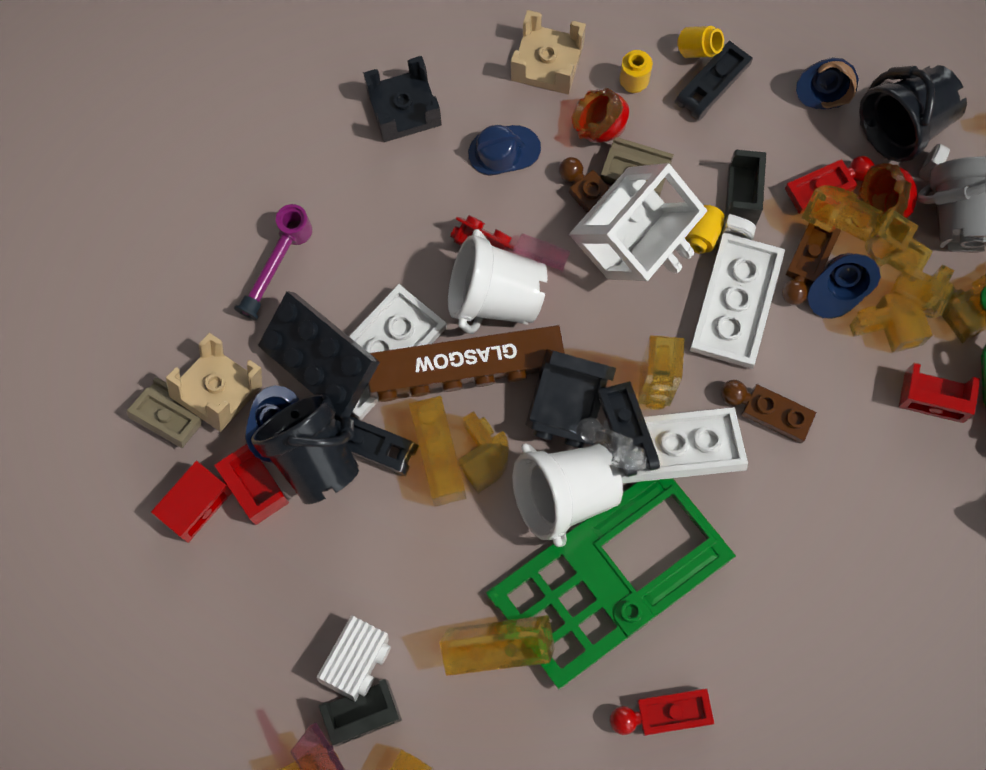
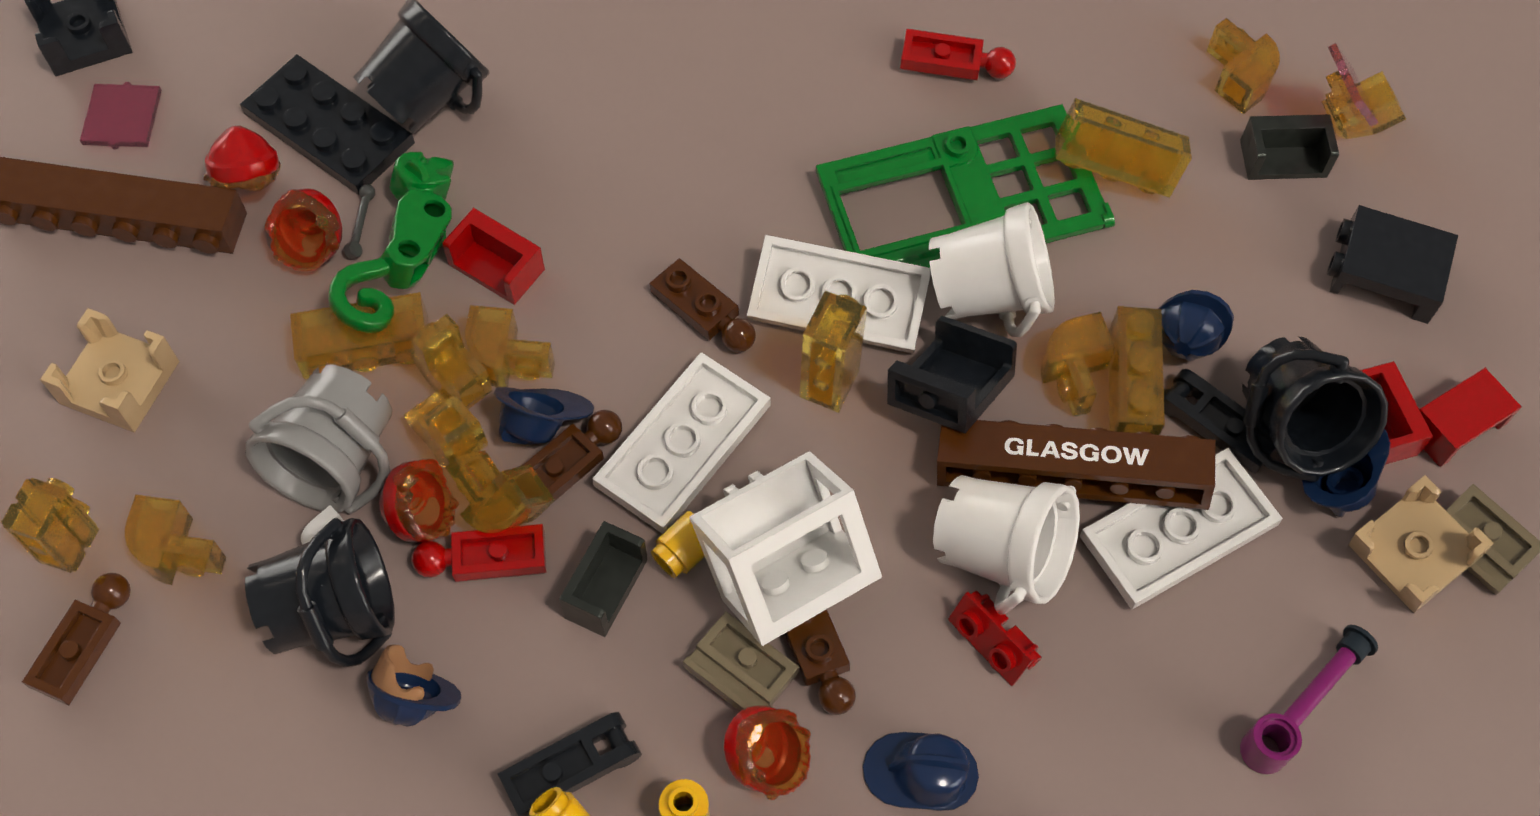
camera: 165 degrees left, 10 degrees down
(260, 622) = (1394, 259): none -> black panel
(318, 353) = (1274, 527): black plate -> none
(354, 658) = (1288, 194): white brick -> none
(407, 501) = (1195, 324): none -> dark blue piece
(541, 251) = (924, 574): clear pink piece -> none
(623, 454) = (938, 330): clear piece -> none
(626, 418) = (894, 311): black plate -> none
(739, 227) = (640, 525): white tile -> none

